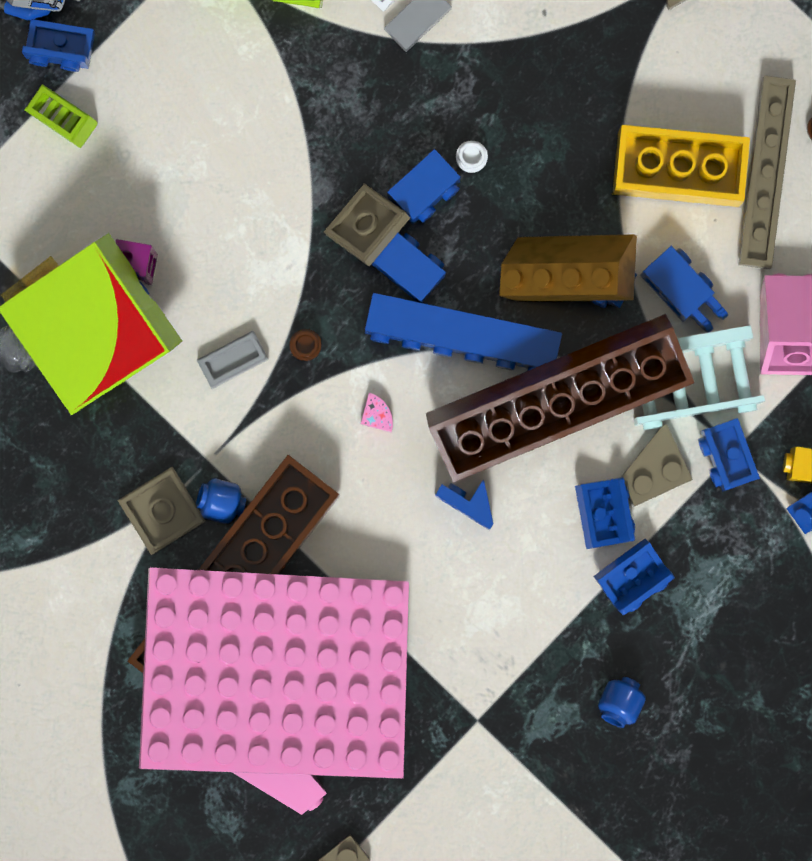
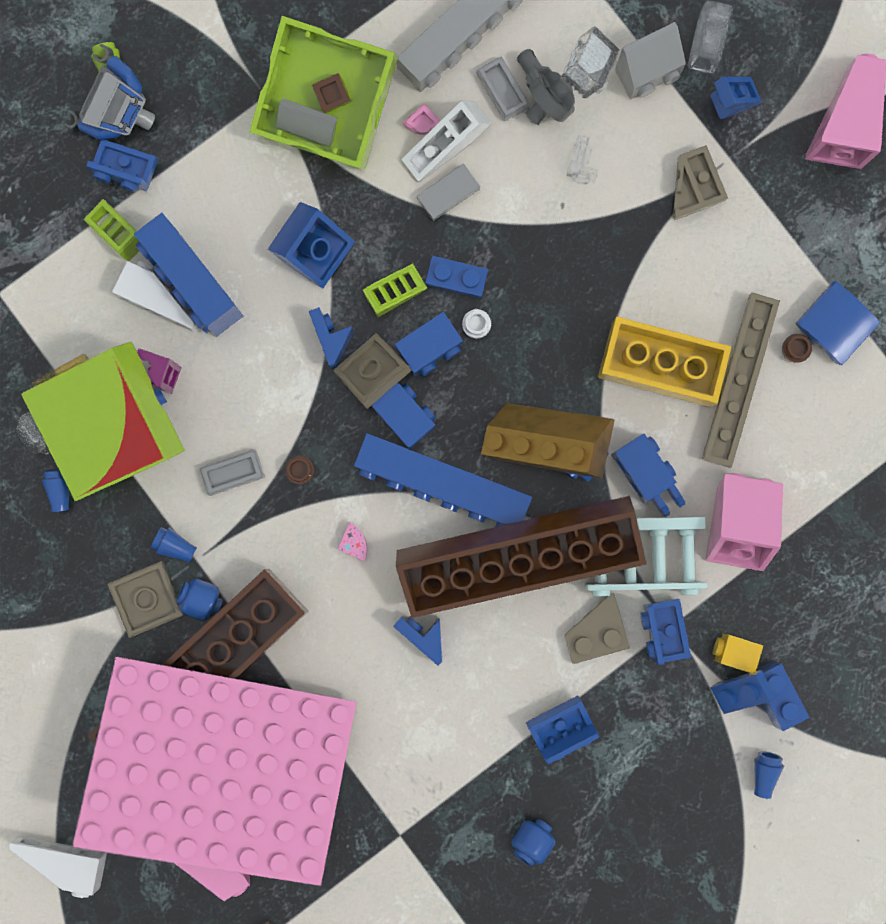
camera: 10 degrees right, 0 degrees up
(46, 406) = (56, 490): none -> blue cone
(107, 177) = (146, 290): none -> white slope
(127, 807) = (64, 865): none -> white slope
(147, 147) = (185, 271): none -> blue brick
(182, 447) = (173, 545): none -> blue cone
(278, 98) = (311, 244): none -> blue slope
(319, 202) = (332, 344): none -> blue slope
(370, 124) = (380, 285): none -> lime slope
(441, 109) = (456, 277): none -> blue plate
(605, 513) = (545, 666): blue bracket -> none

